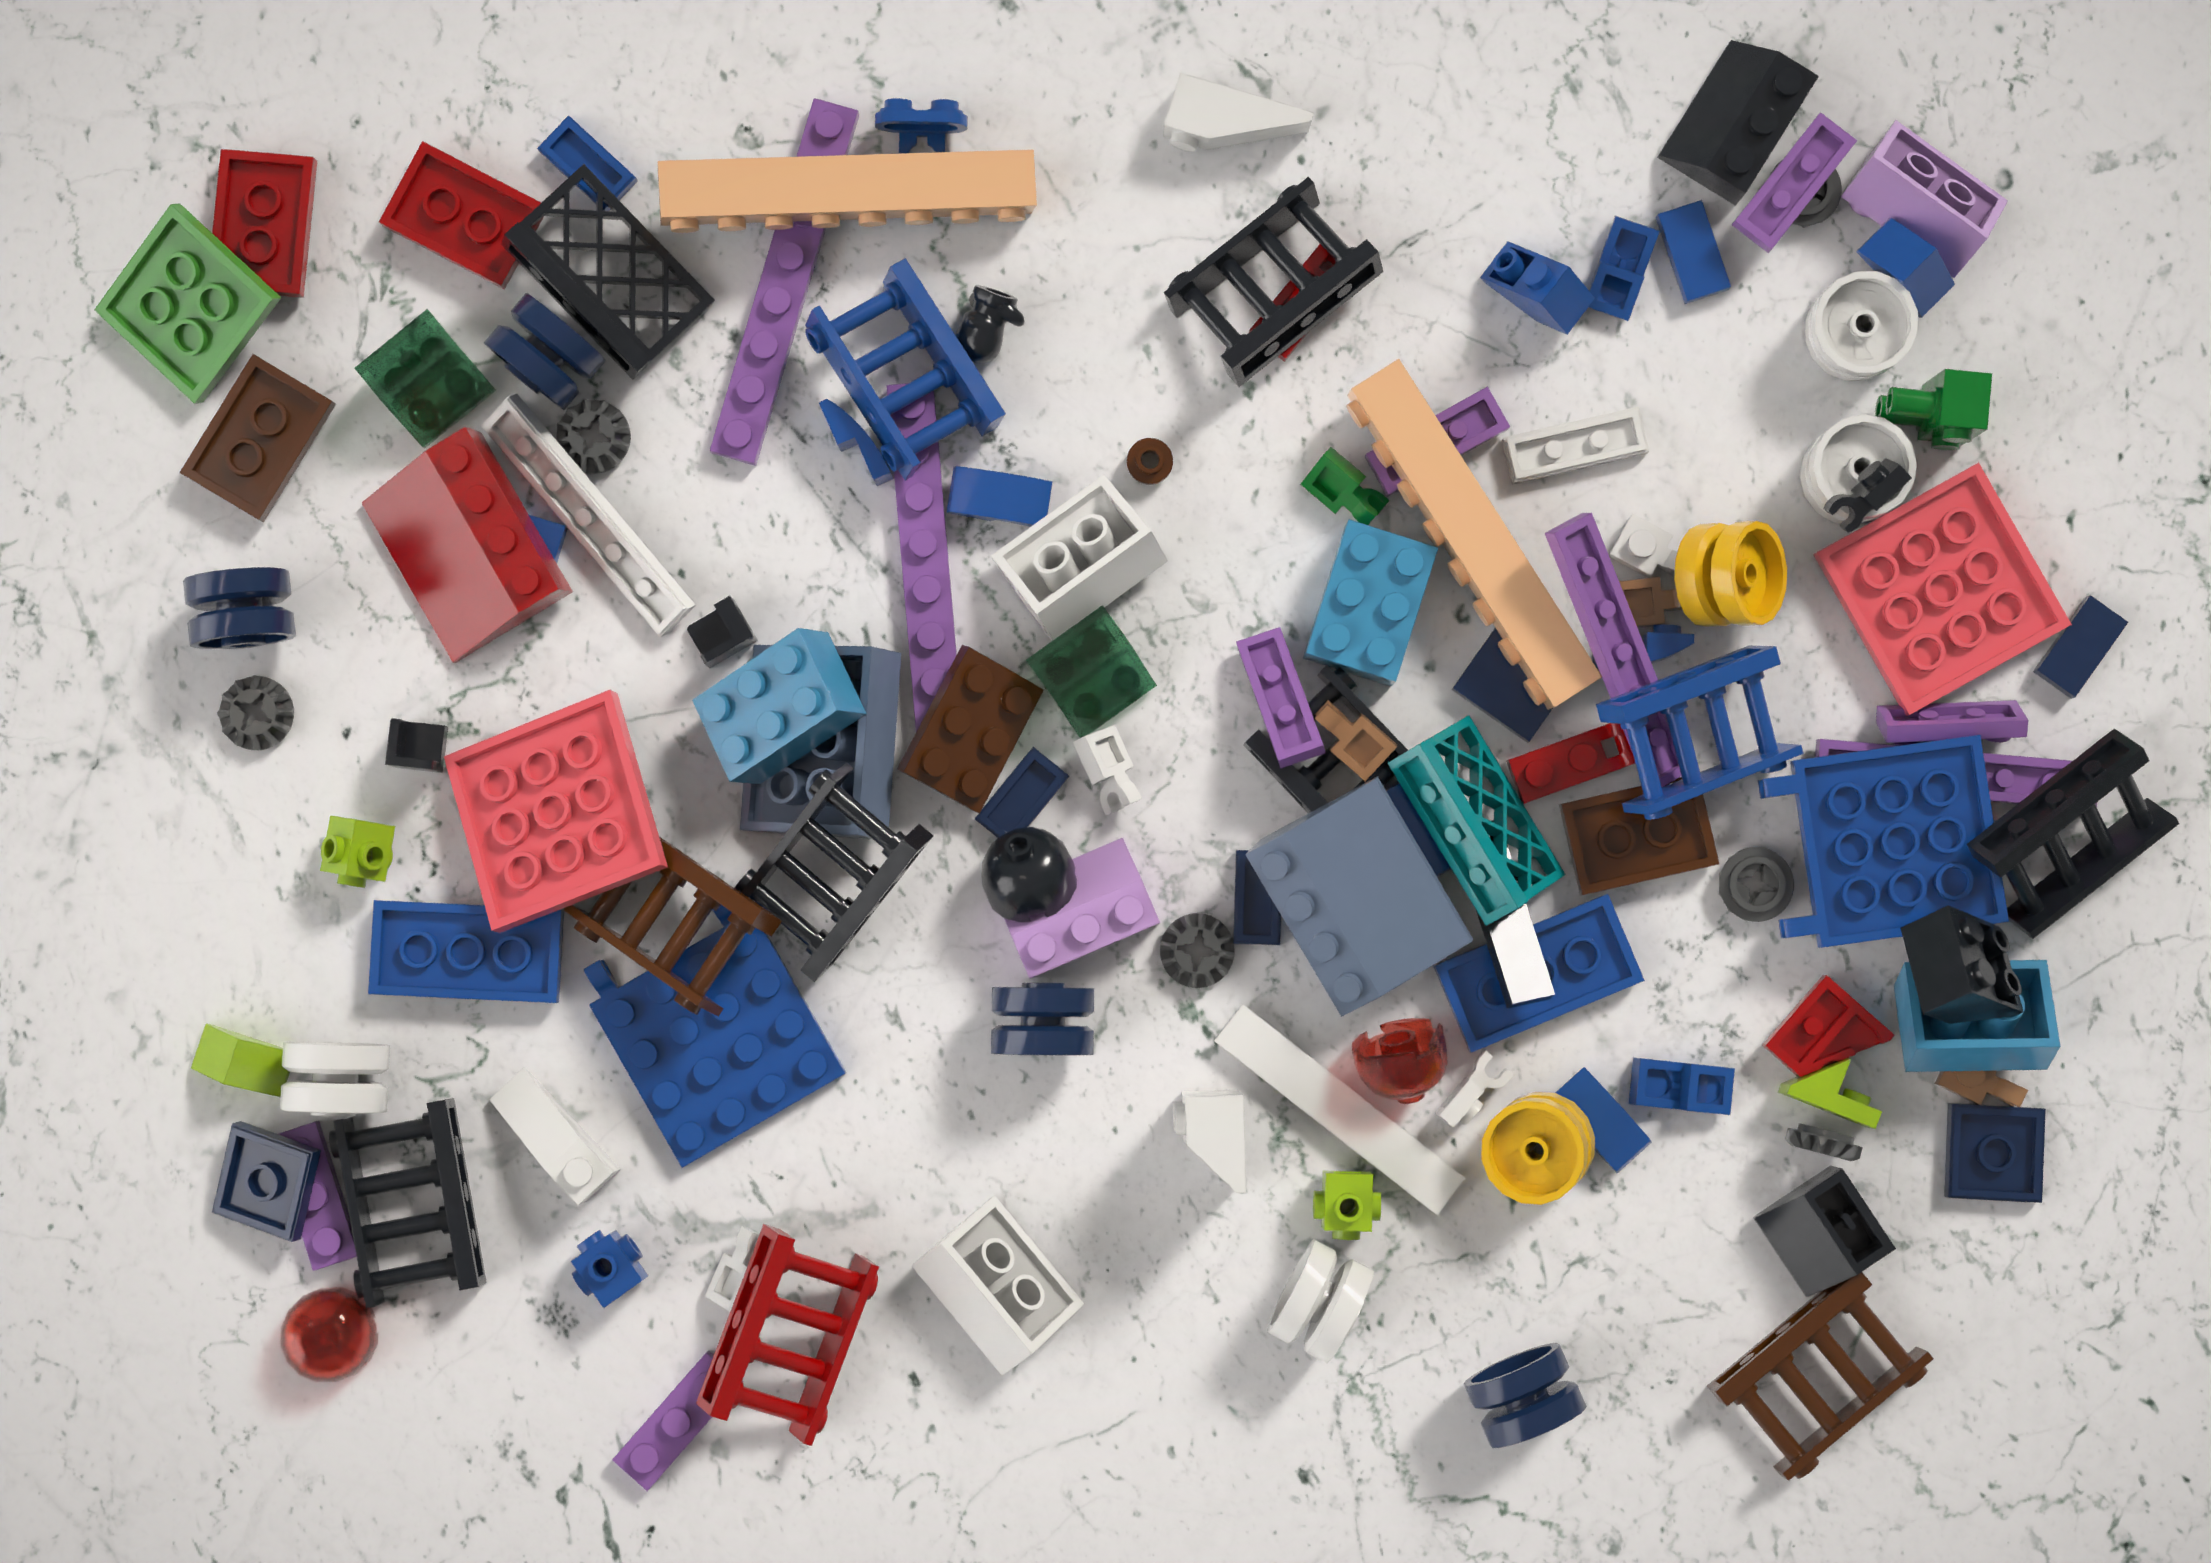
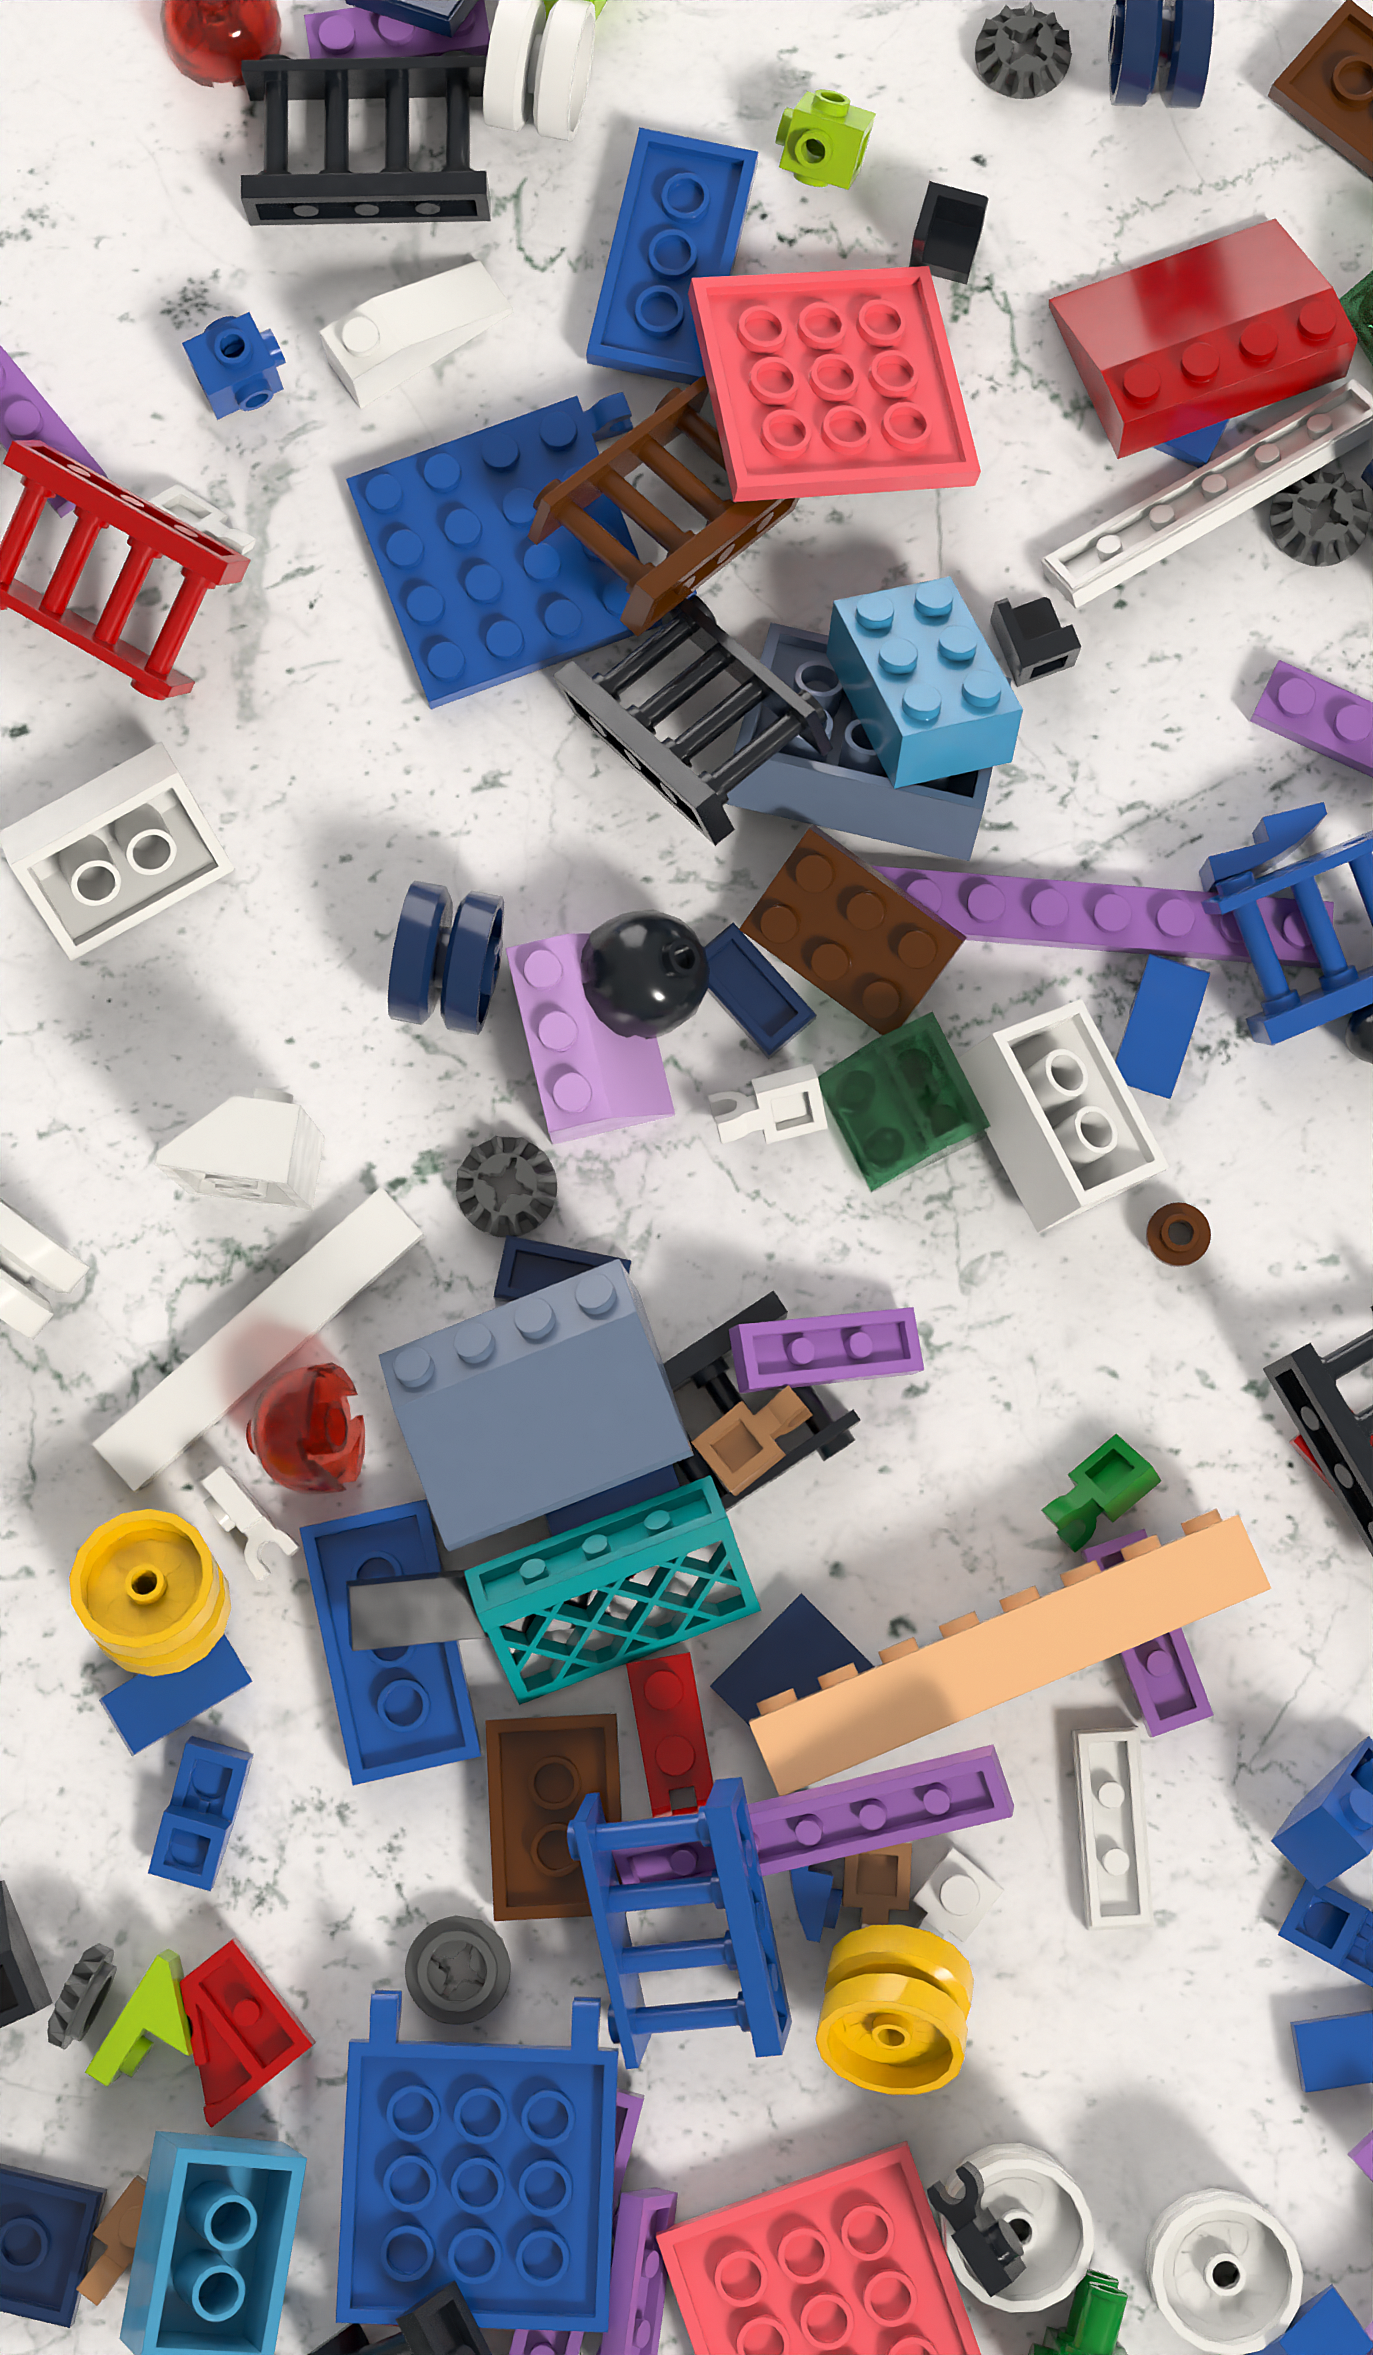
camera: 105 degrees right, 5 degrees down
(1338, 1187) = (151, 1327): lime brick -> none
(1370, 603) = (937, 1497): dark azure brick -> none
(1961, 967) = (279, 2237): black slope -> none

